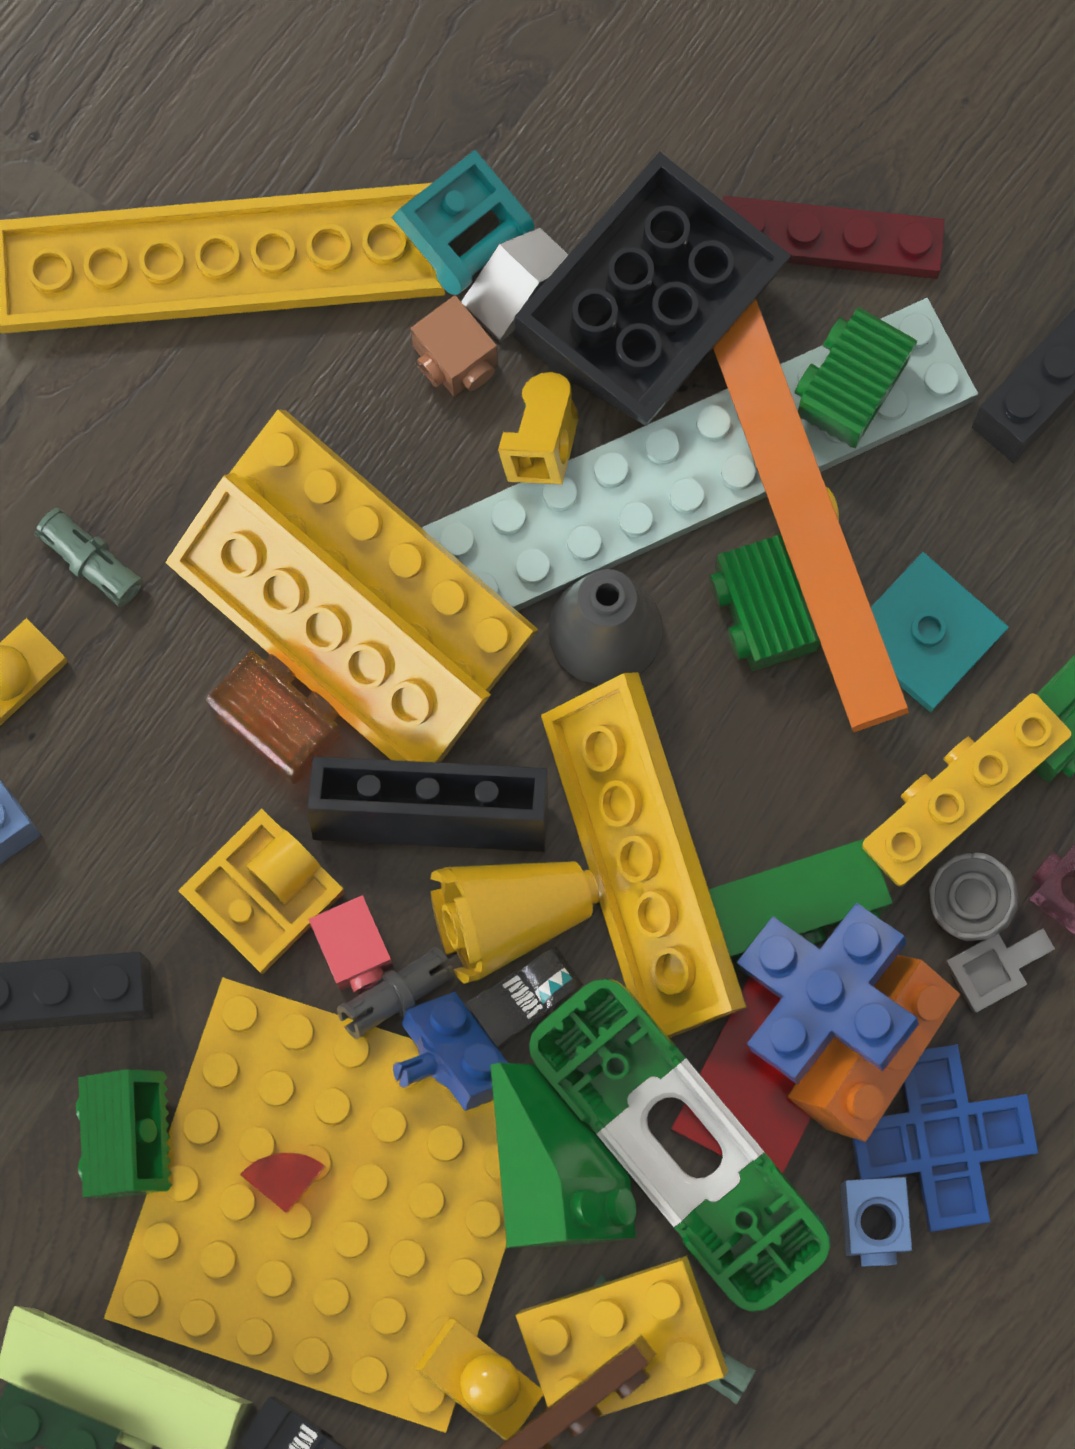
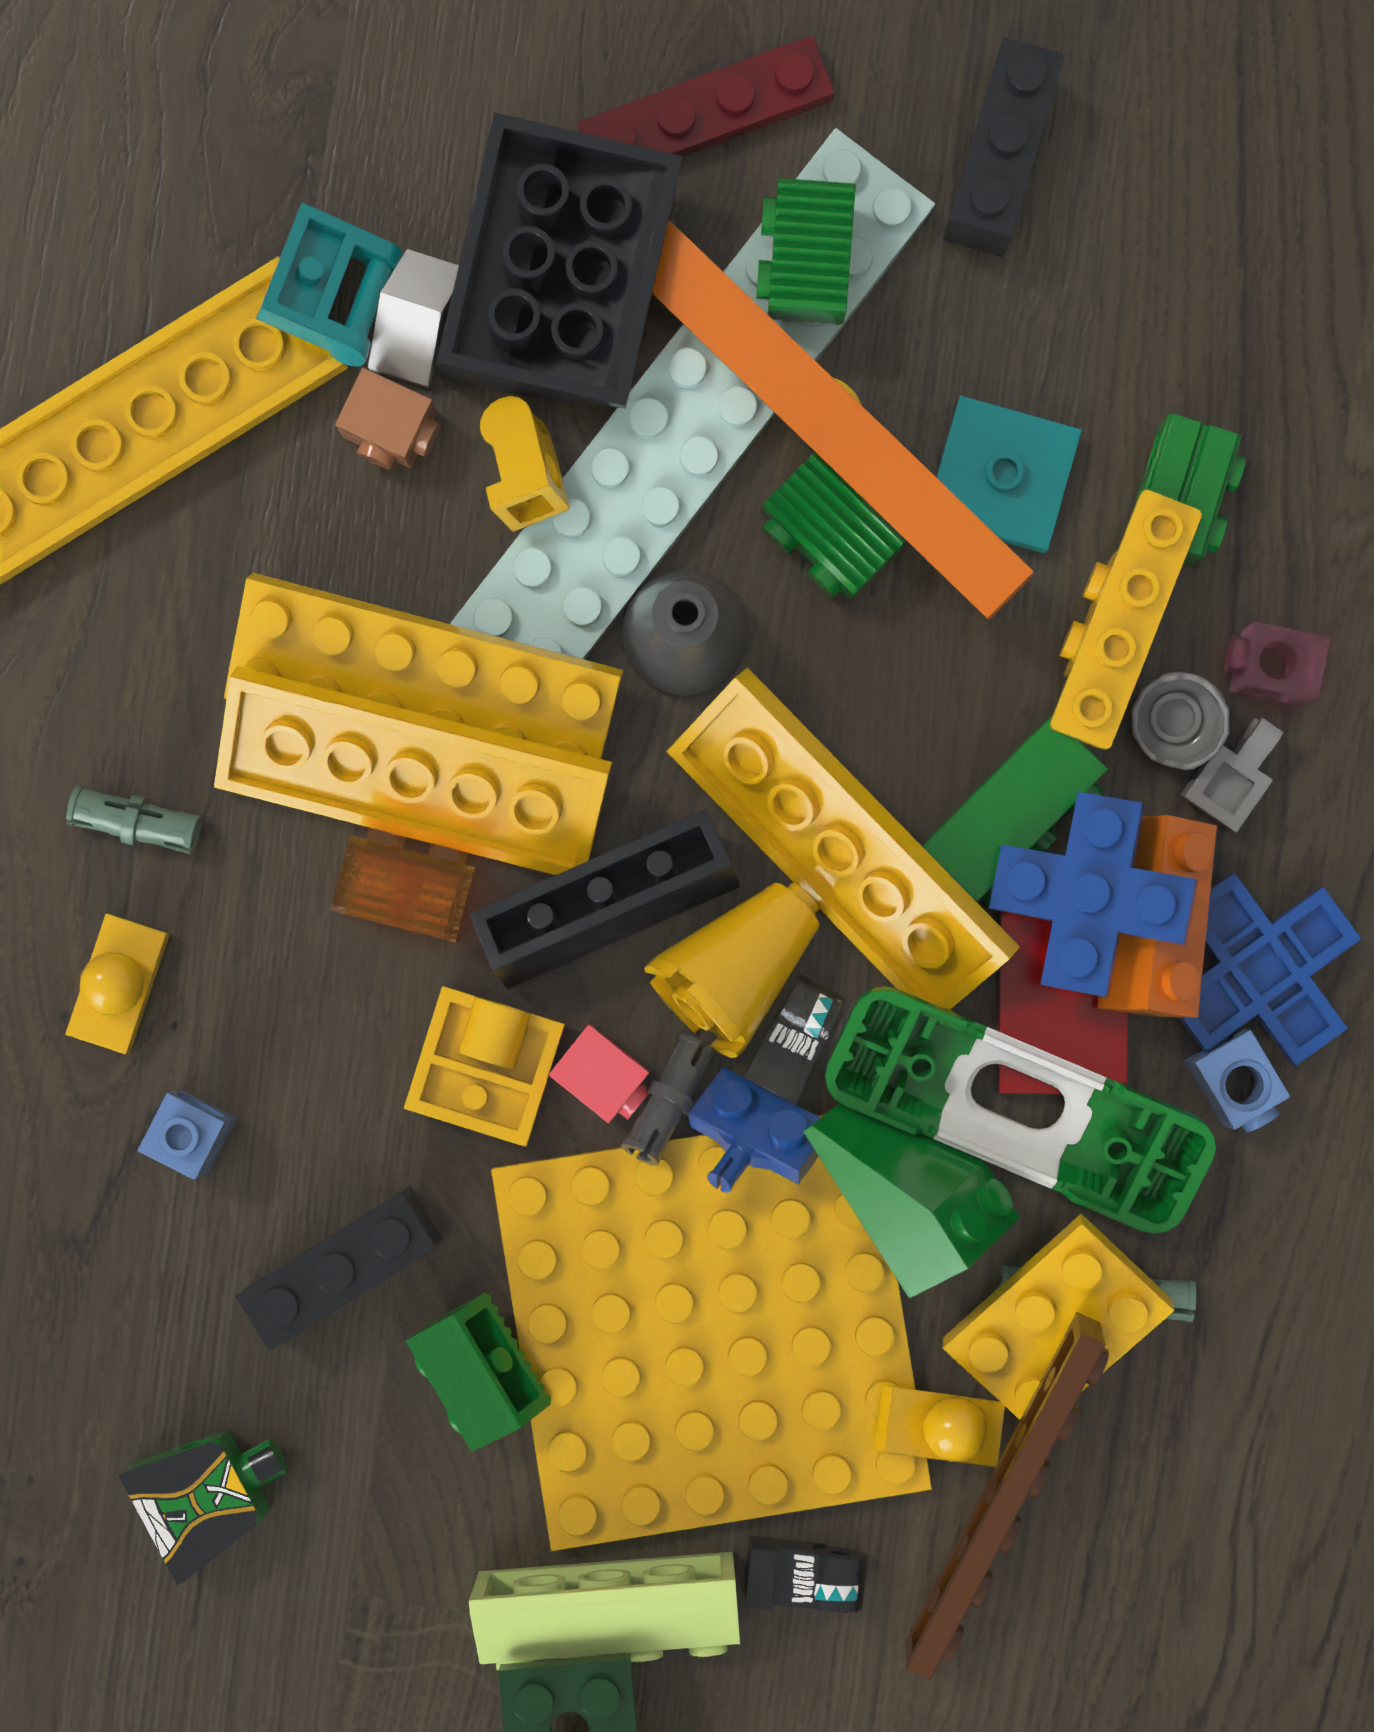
camera: 30 degrees left, 10 degrees up
(283, 1177) = (654, 1333): clear red tile -> none

